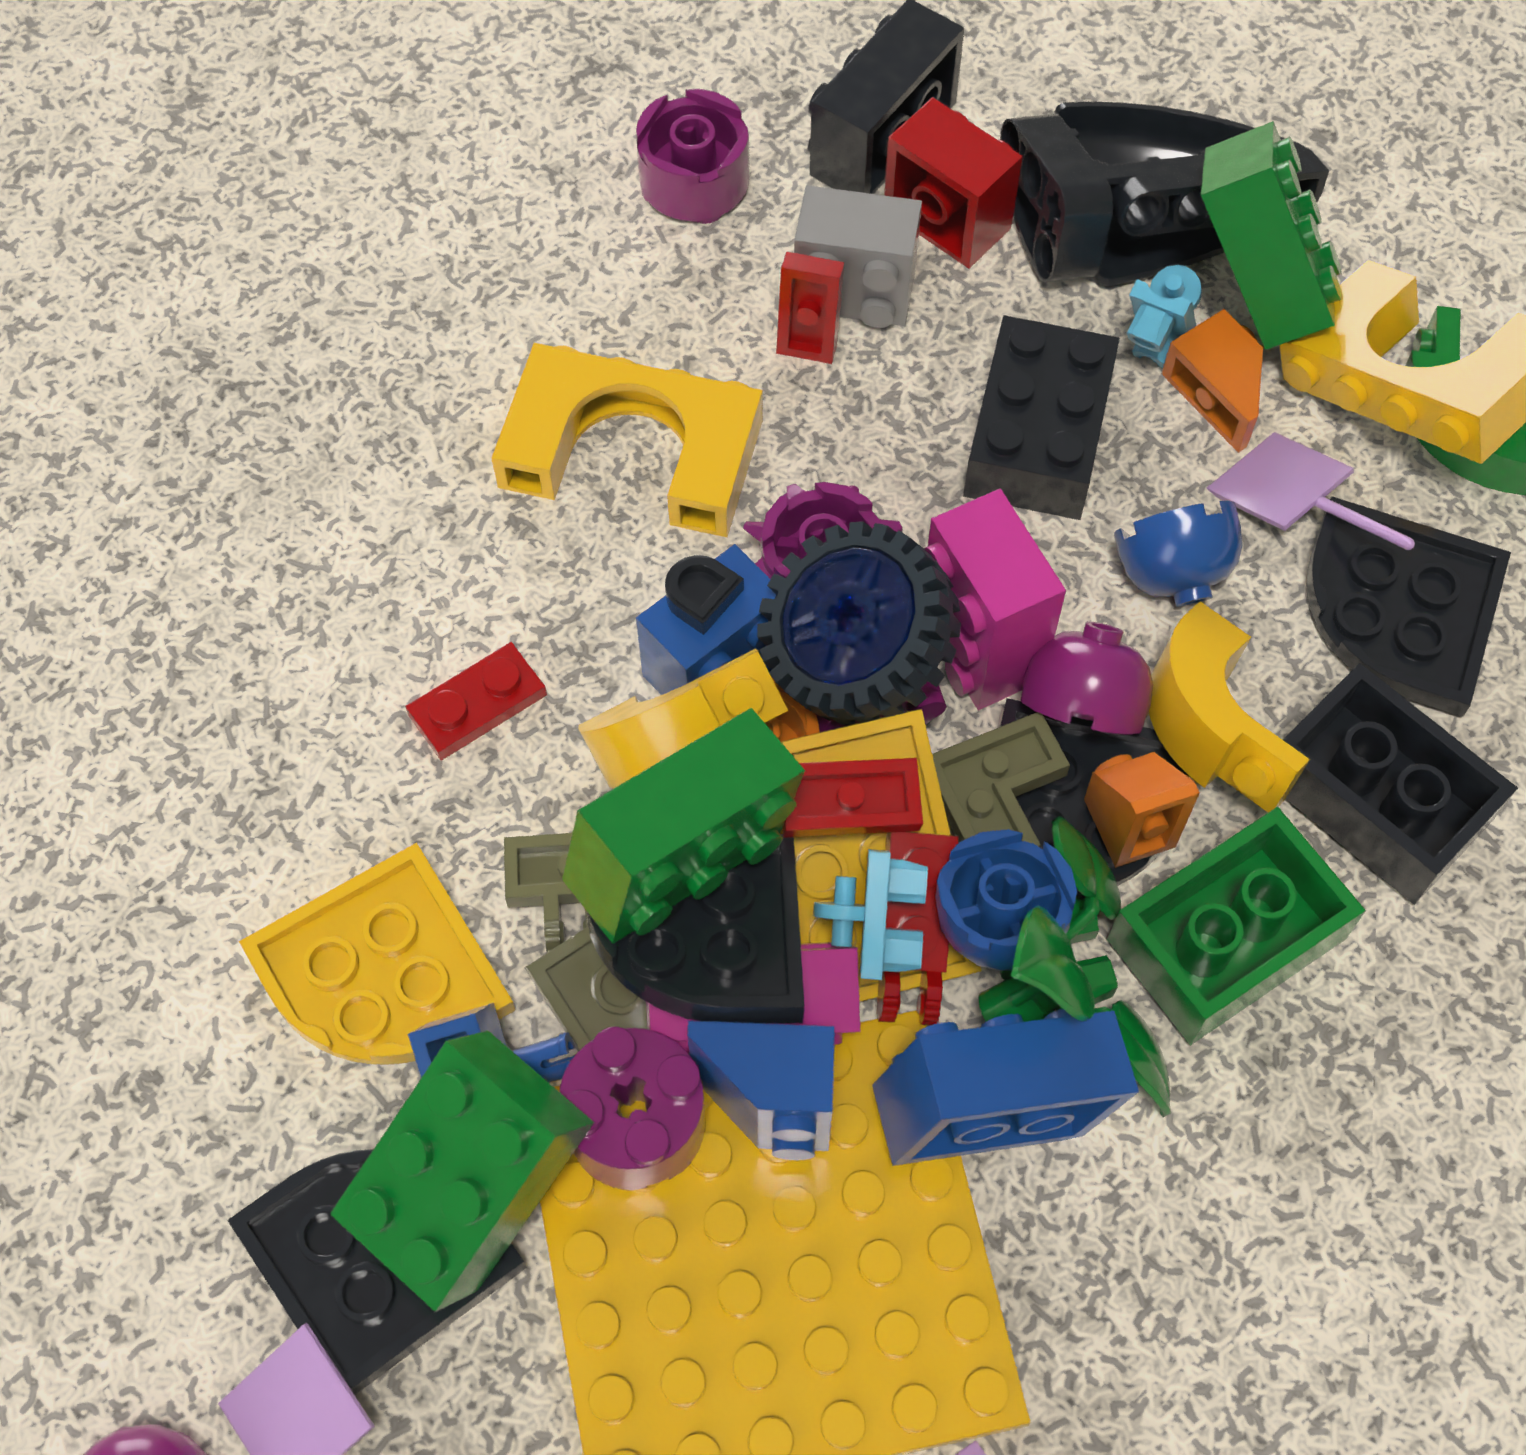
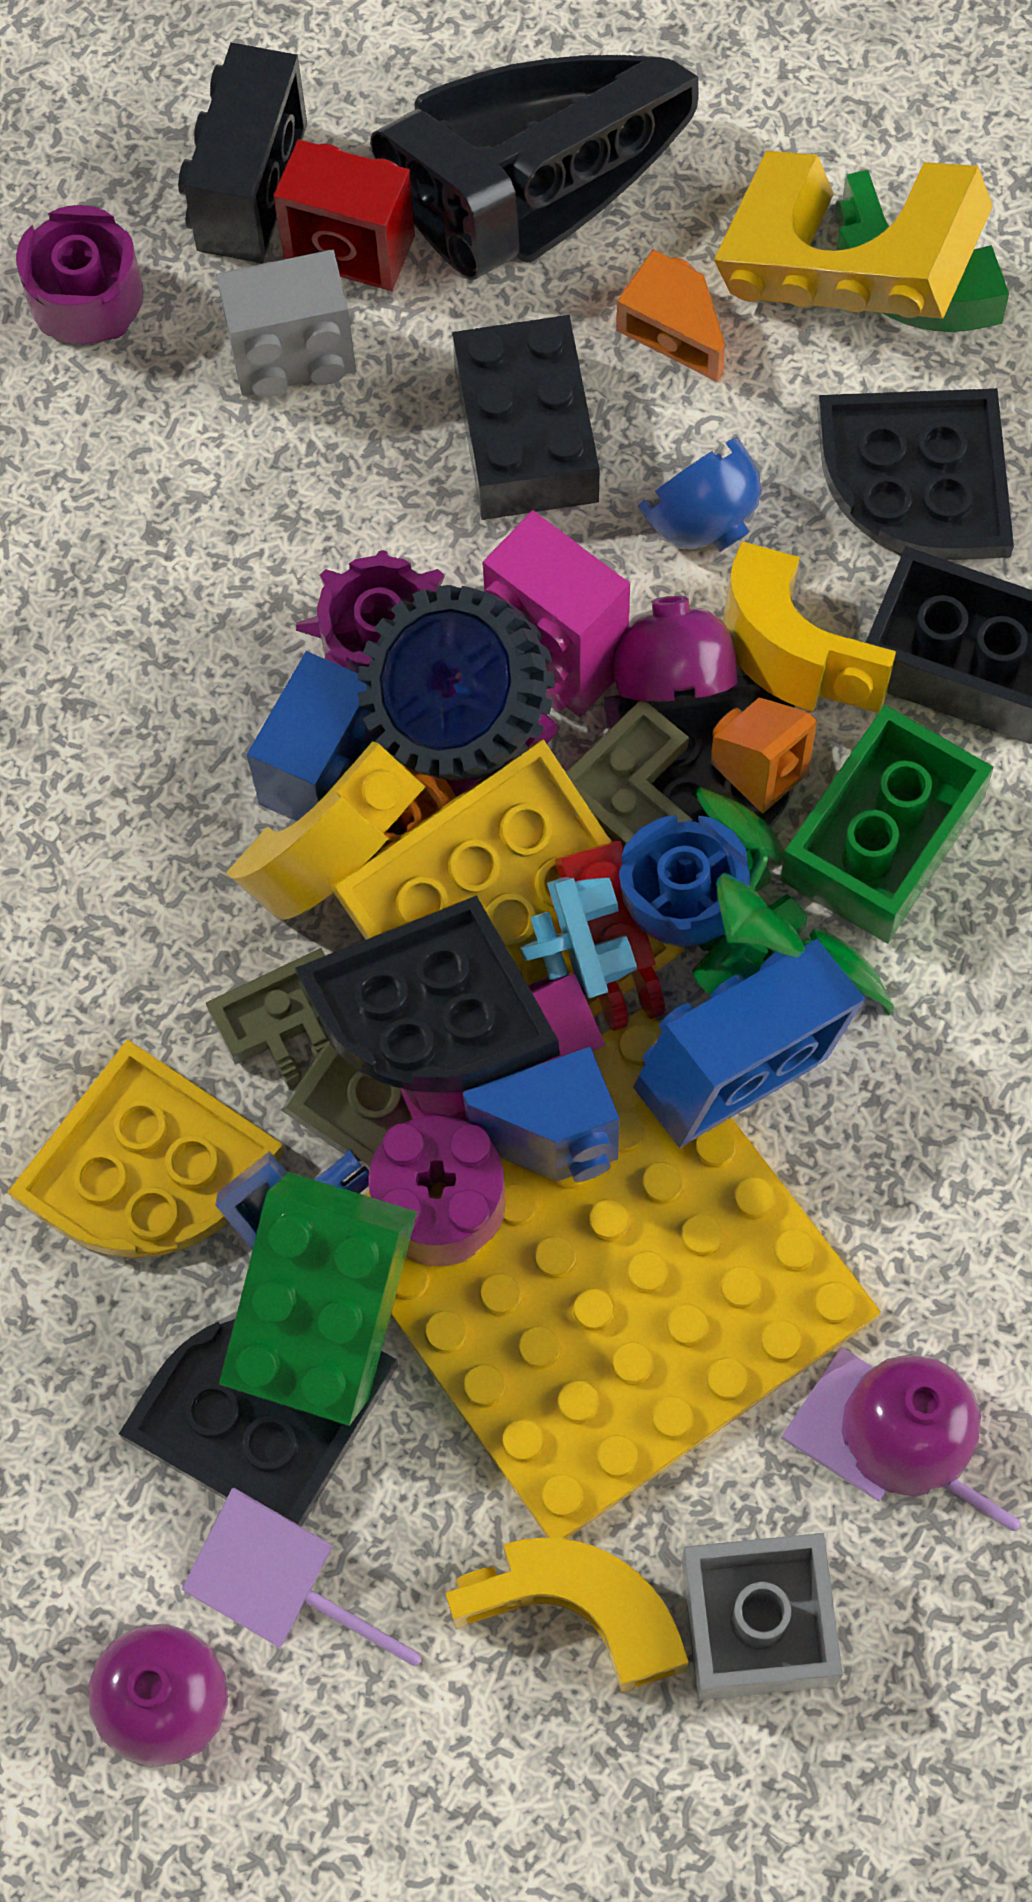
camera: 20 degrees left, 5 degrees up
(476, 700) = (116, 888): red plate -> none
(573, 390) = (71, 555): yellow arch -> none
(681, 826) = (389, 926): green brick -> none
(701, 590) = (296, 706): black tile -> none
(809, 307) = (265, 391): red plate -> none
(856, 798) = (514, 843): red plate -> none
(1163, 311) = (598, 271): medium azure hips -> none
(1271, 234) = (672, 164): green brick -> none
(1287, 479) = (771, 395): lavender piece -> none

